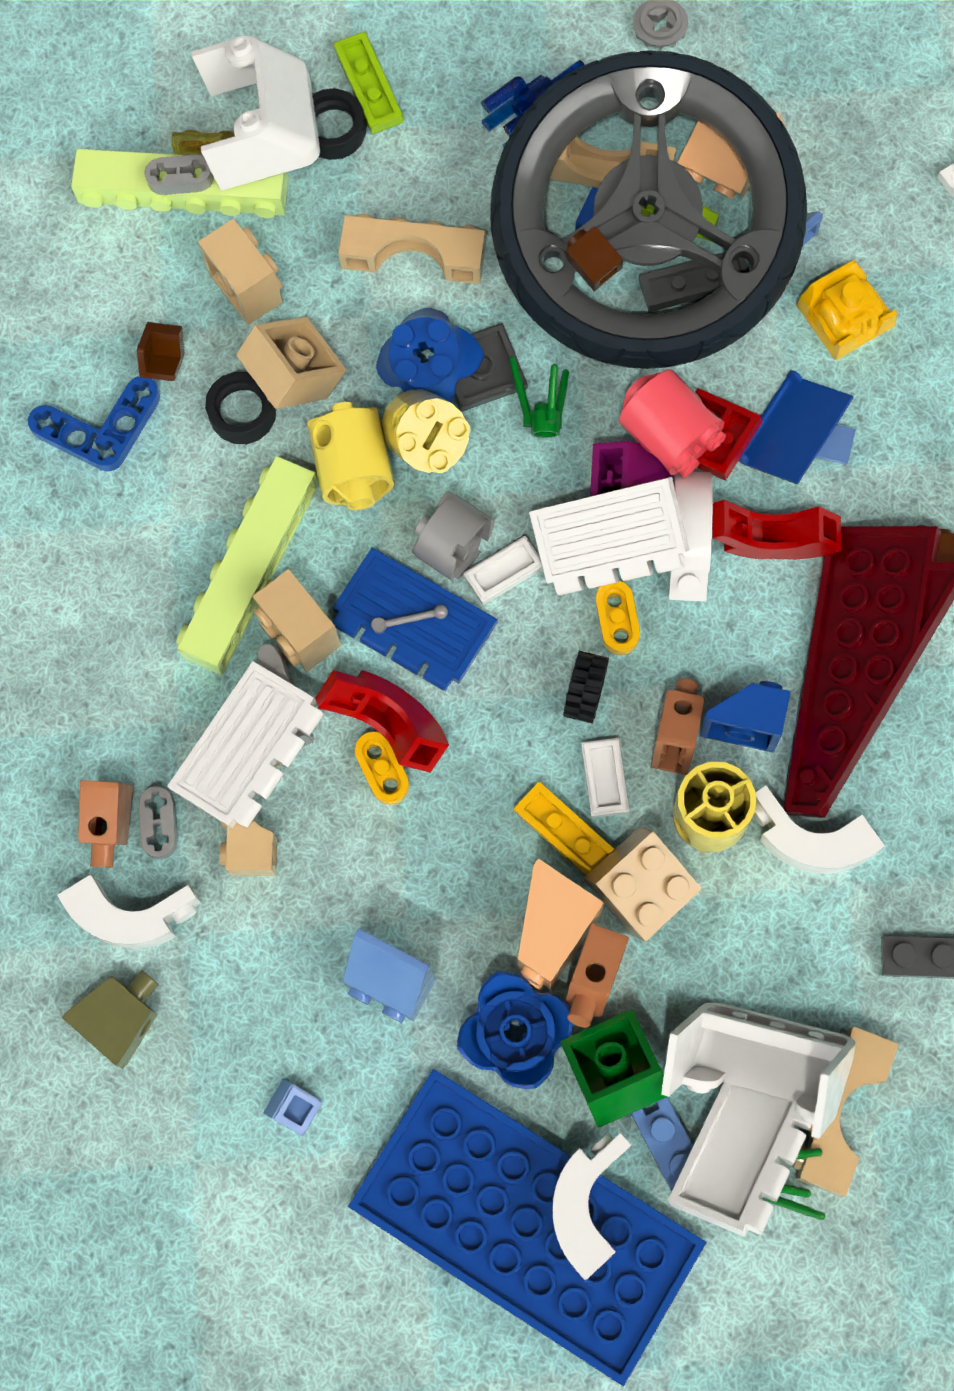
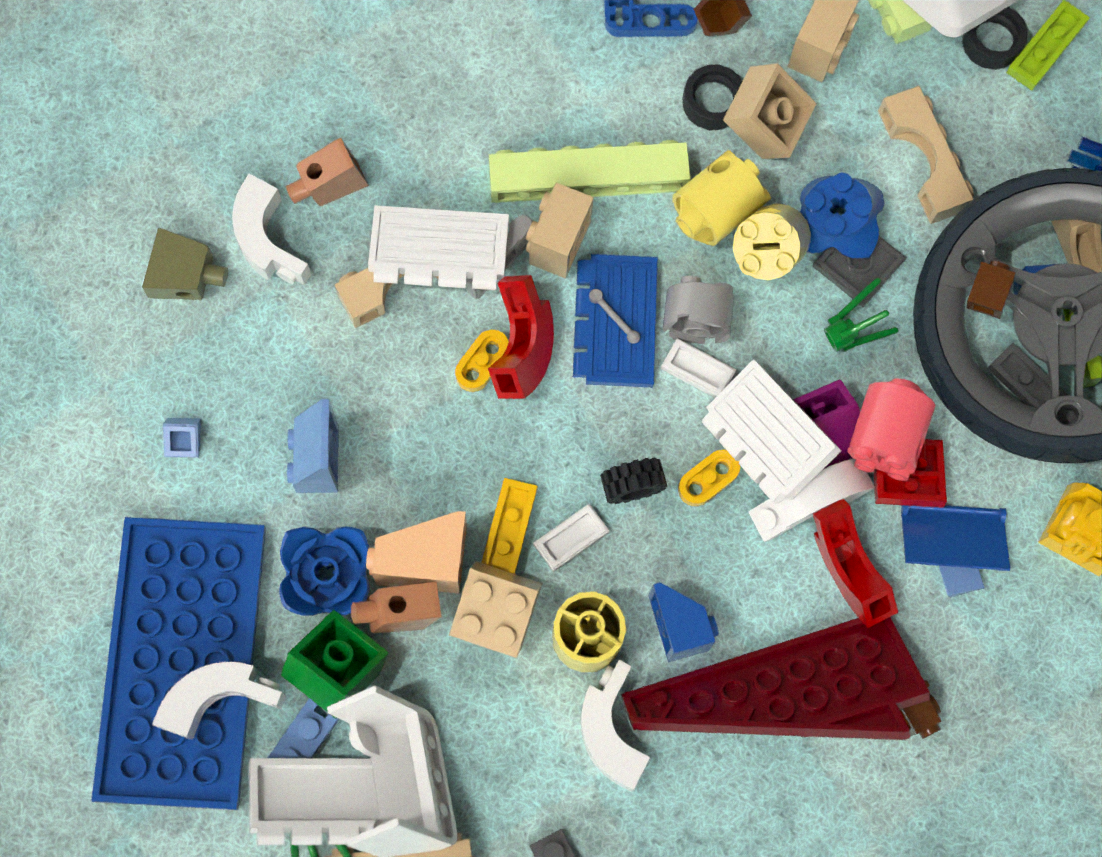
camera: 50 degrees right, 0 degrees up
(149, 822) = (344, 212): light grey beam -> none
(678, 728) = (638, 570): nougat torso -> none

